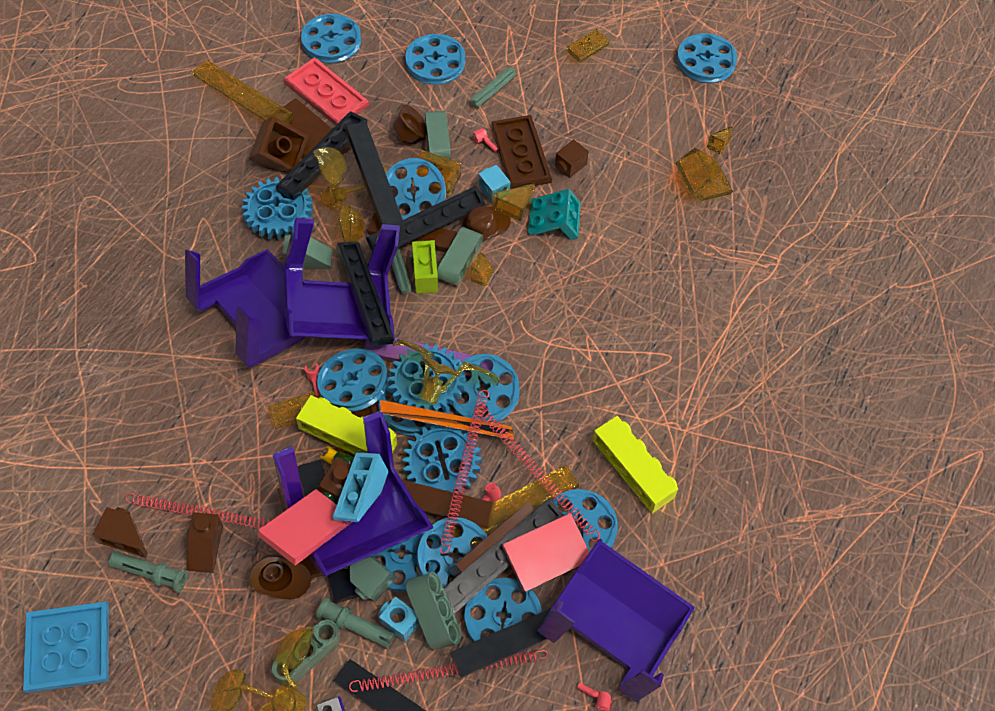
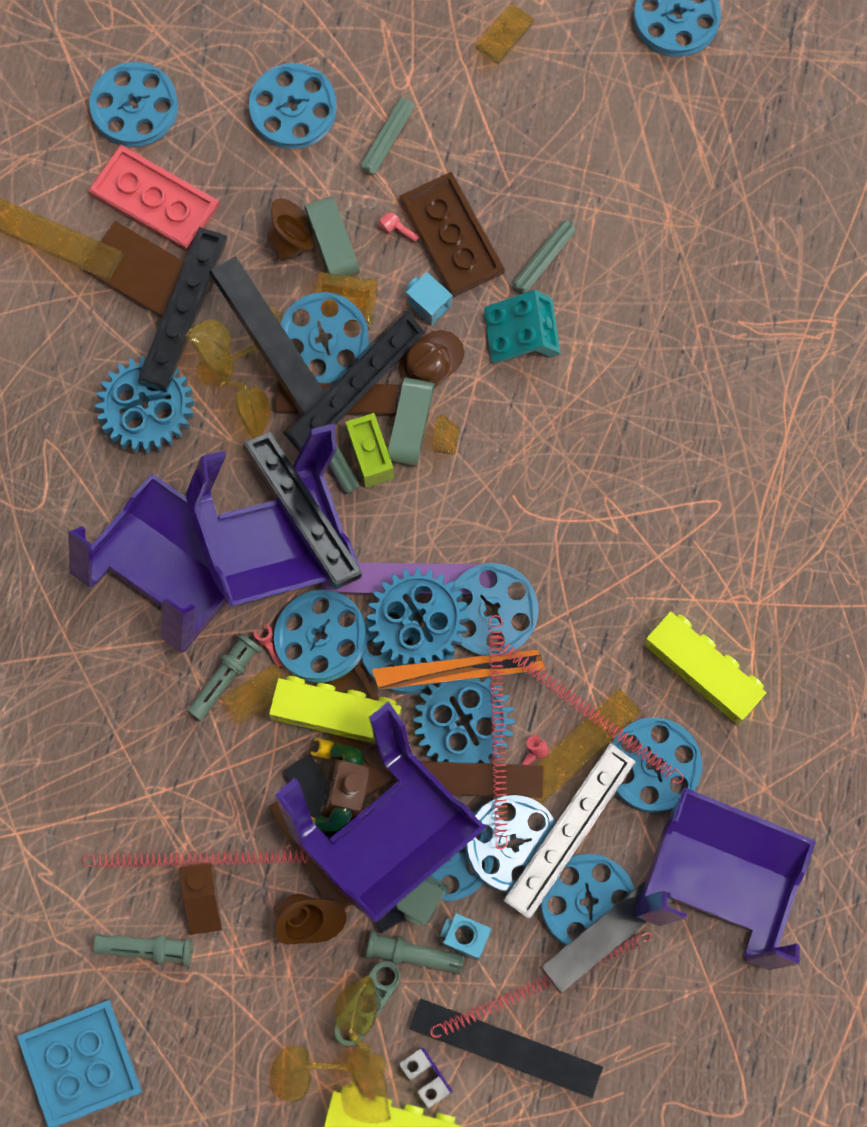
camera: 10 degrees left, 15 degrees up
(120, 532) = (94, 908): reddish brown slope -> none
(278, 145) = (118, 309): reddish brown slope -> none
(282, 385) = (199, 707): none -> sand green pin
(303, 527) = (330, 862): coral tile -> none
(317, 254) = (188, 459): sand green slope -> none
(361, 487) = (382, 796): medium azure slope -> none
(433, 387) = (438, 625): clear yellow plant -> none
(433, 611) = (507, 920): sand green beam -> none
(490, 540) = (554, 815): reddish brown tile -> none
(514, 201) = (464, 321): clear yellow slope -> none
(546, 552) = (624, 814): coral tile -> none
(571, 158) = (524, 233): reddish brown brick -> none
(583, 175) = (544, 256): none -> sand green axle
(603, 698) = (730, 975): coral hand -> none
(702, 176) = (710, 219): clear yellow slope -> none
(719, 140) = (721, 156): clear yellow slope -> none

